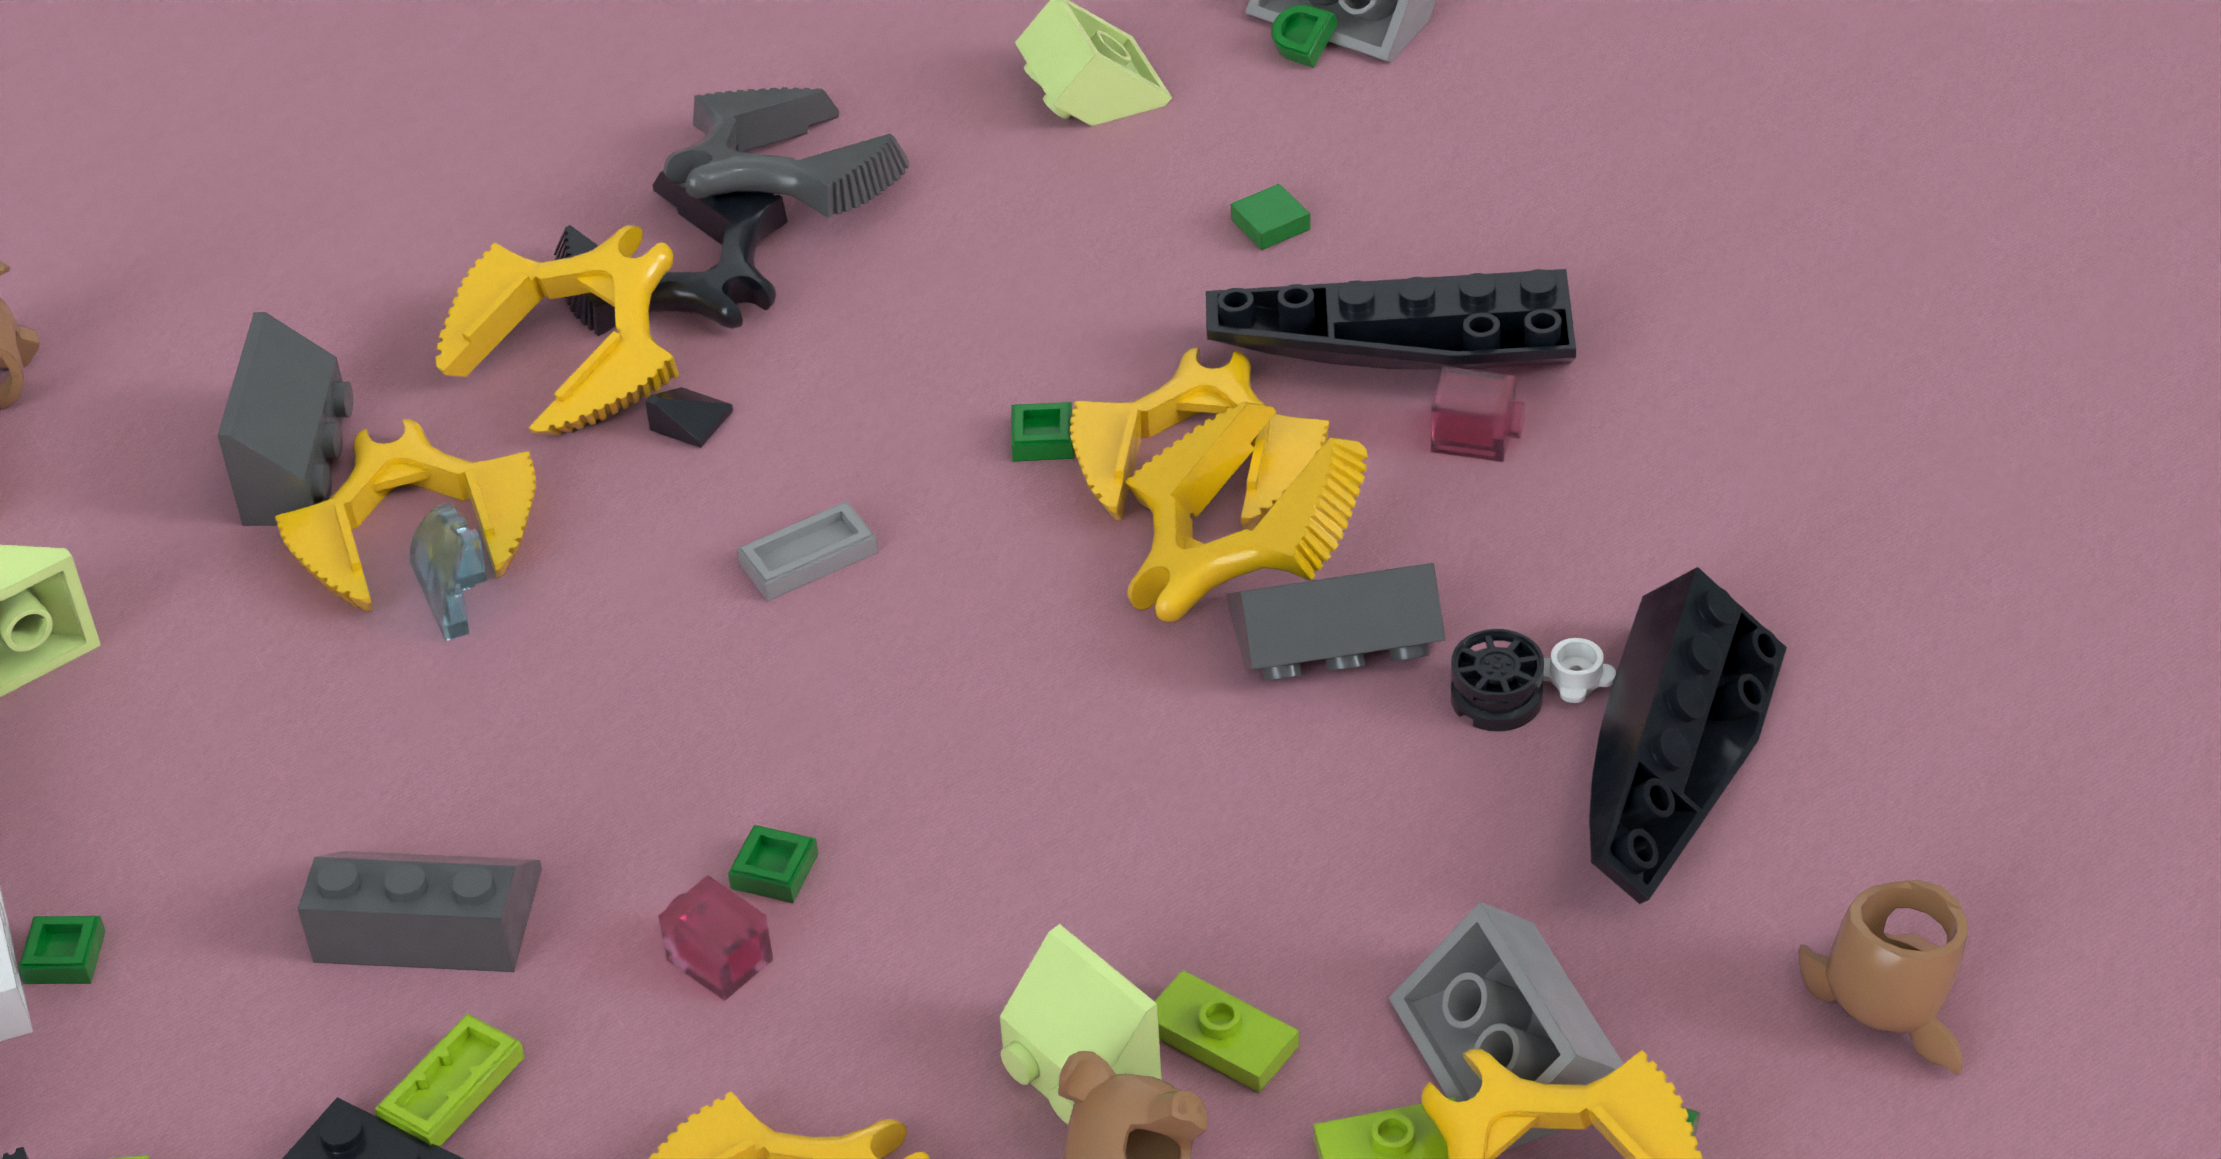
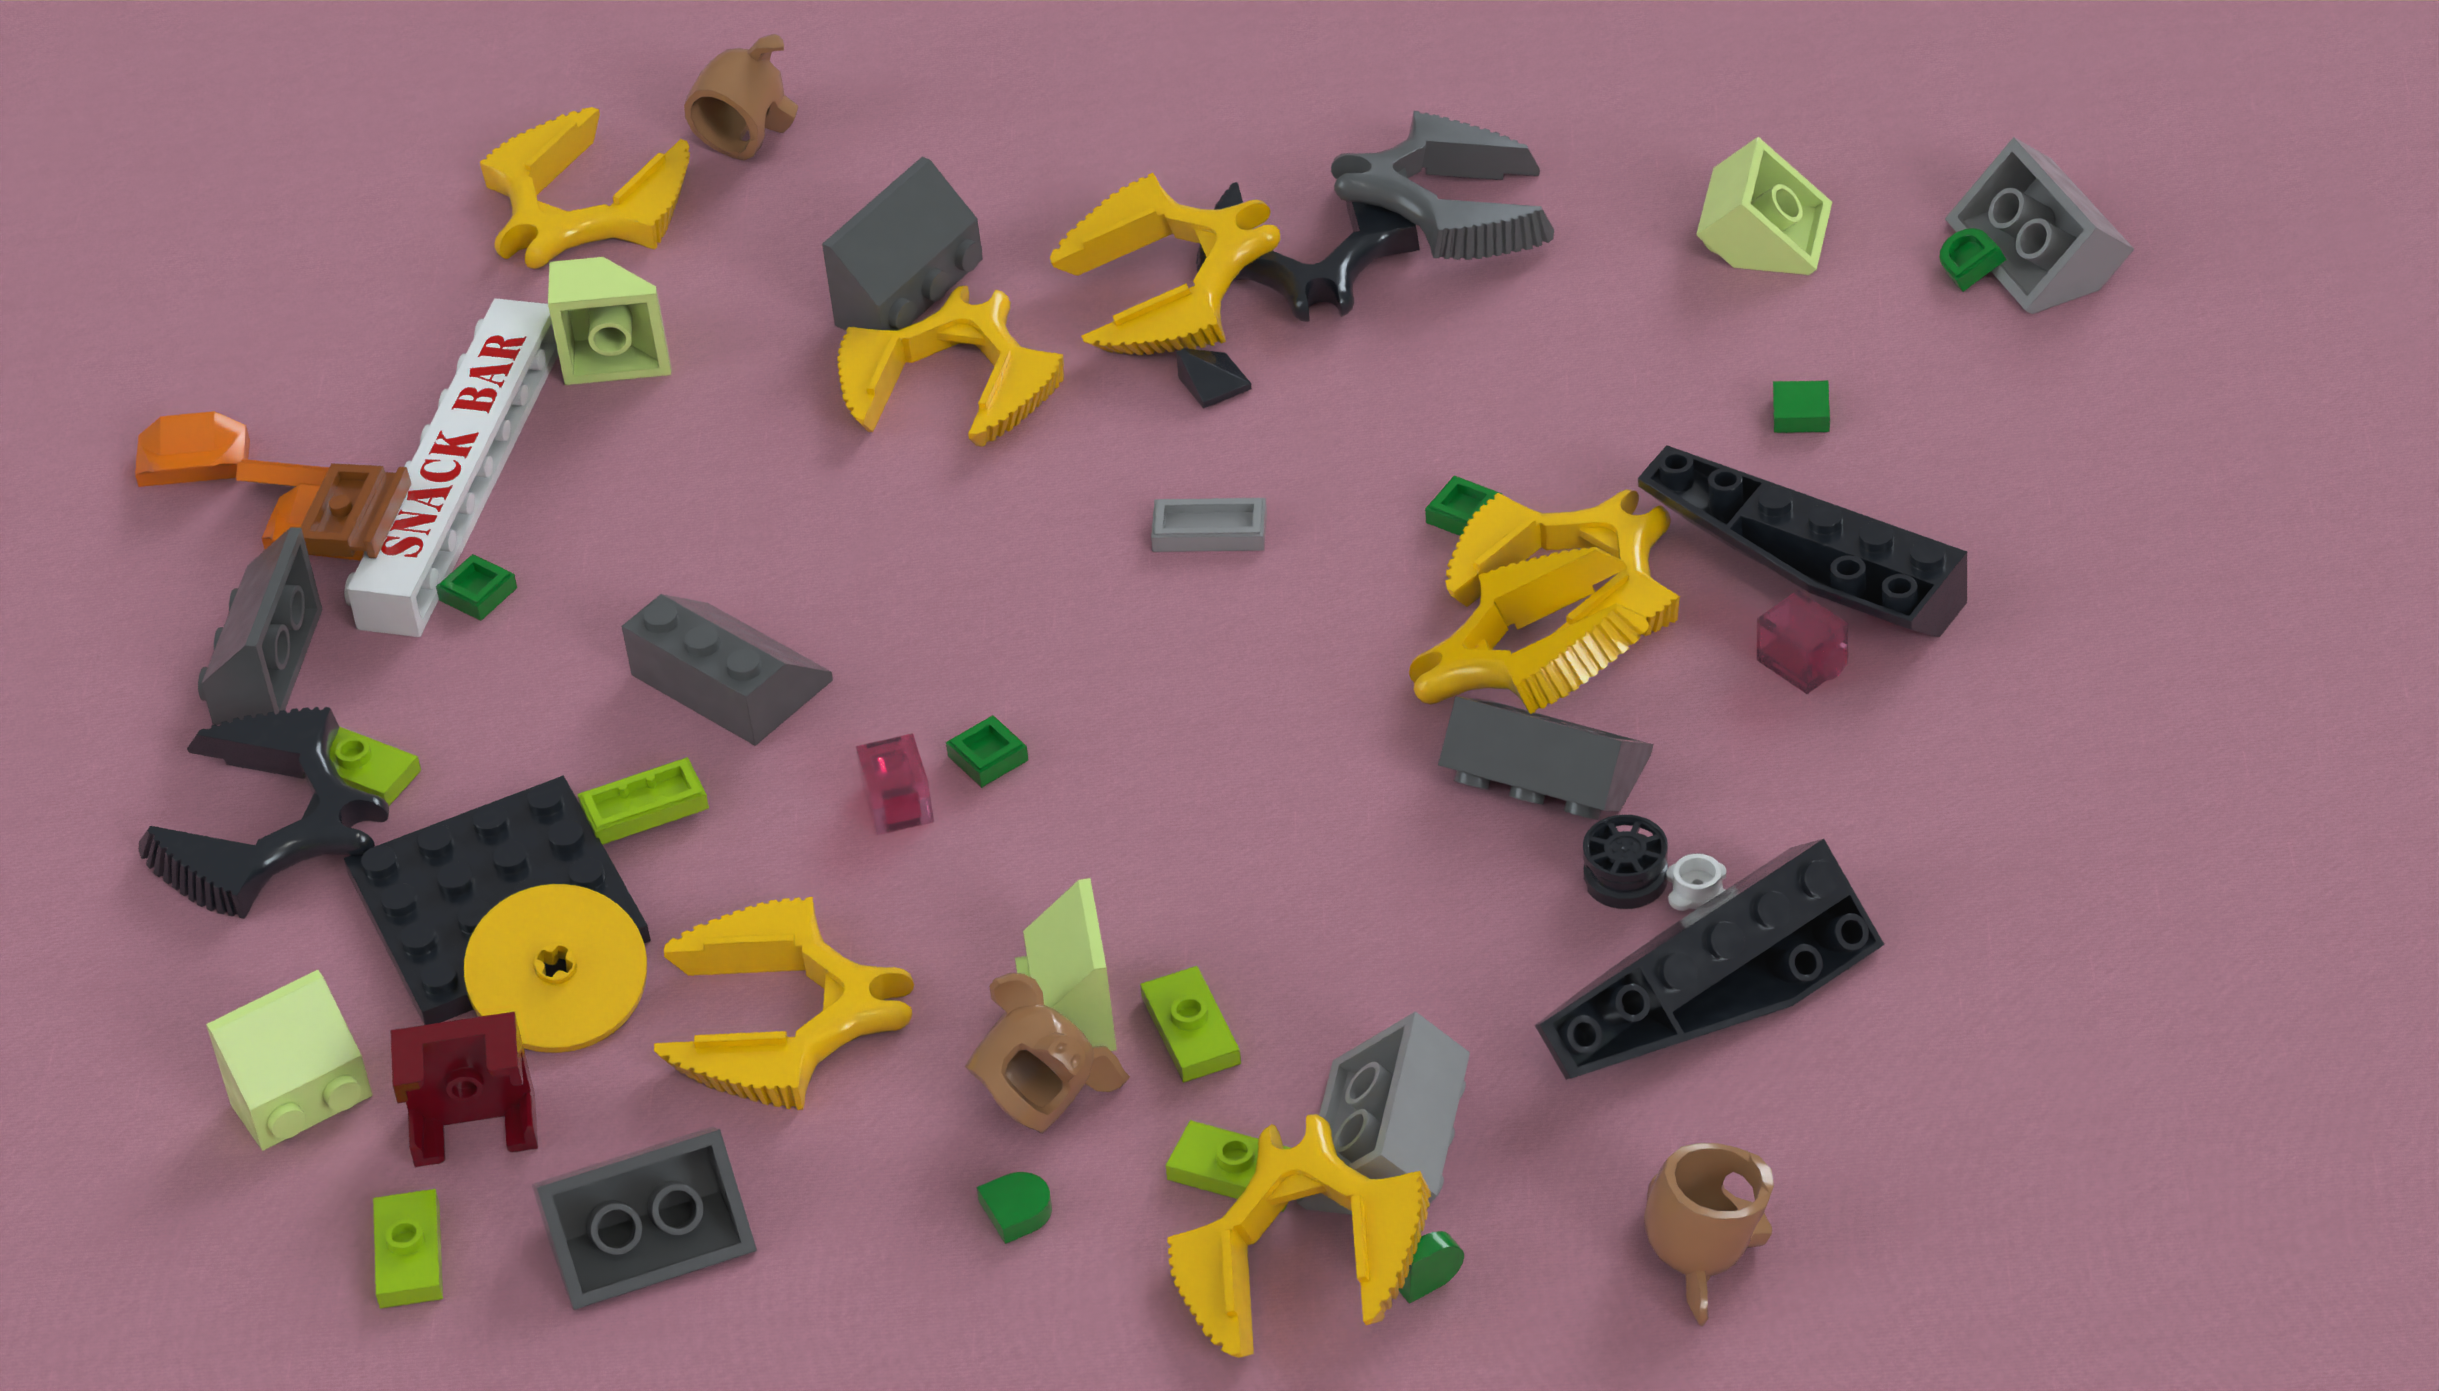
camera: 35 degrees right, 0 degrees up
(446, 562) = (937, 422): clear light blue slope -> none

